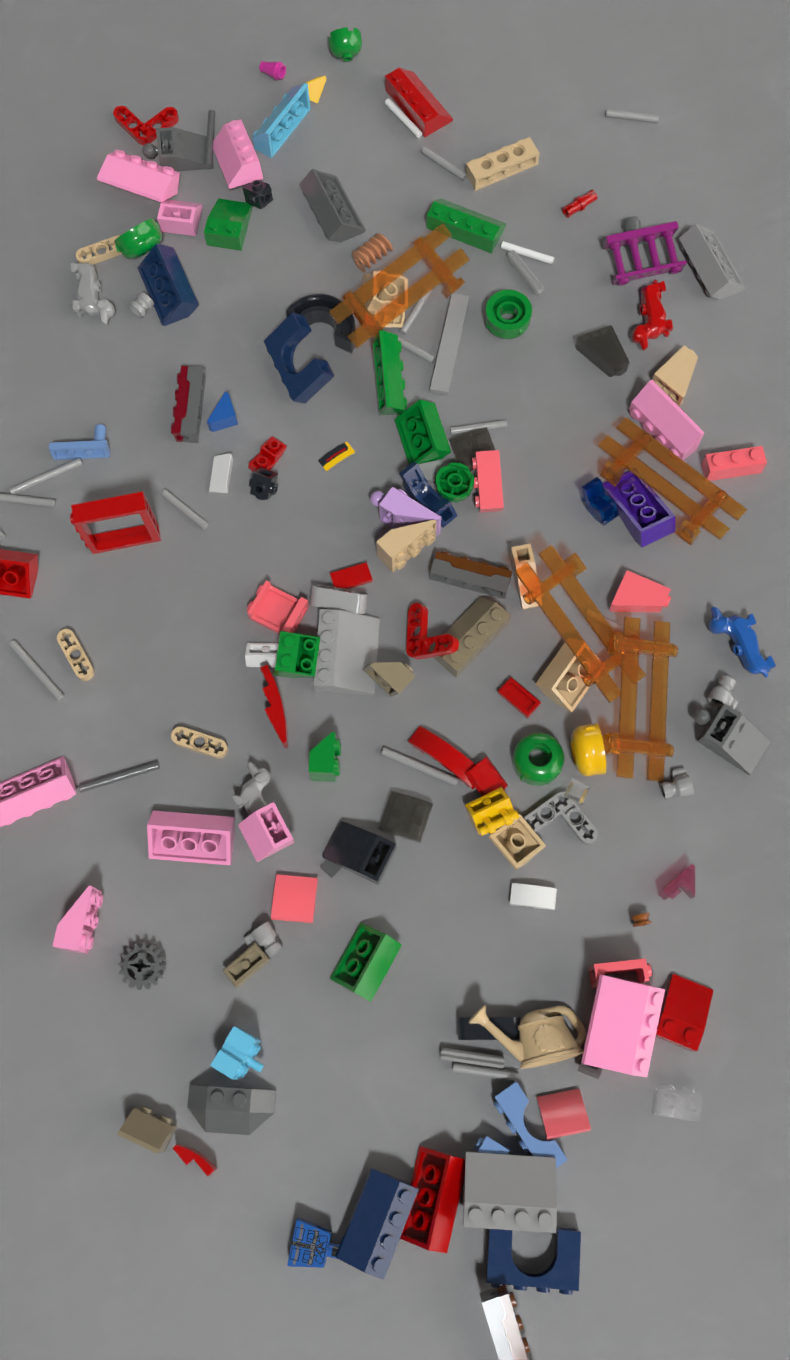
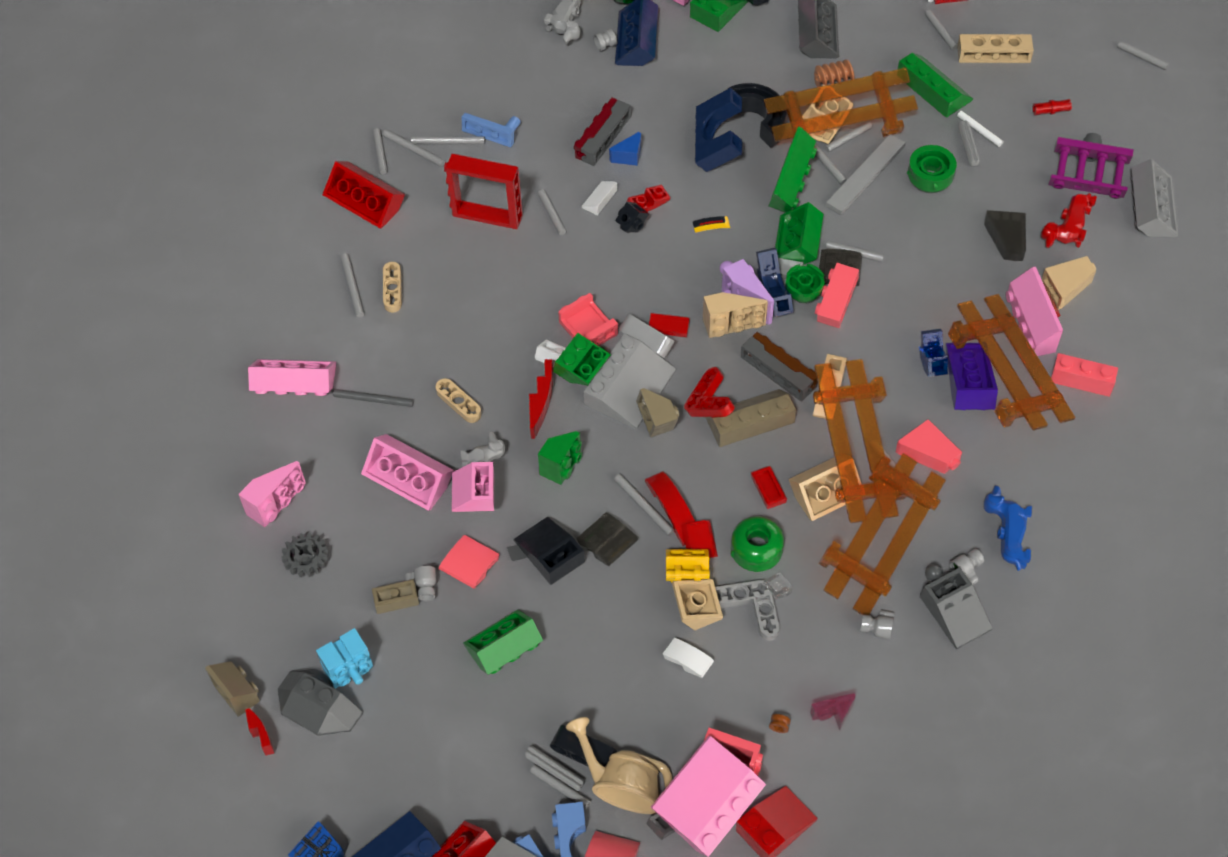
camera: 25 degrees right, 15 degrees down
(588, 750) = (806, 552): yellow piece -> none

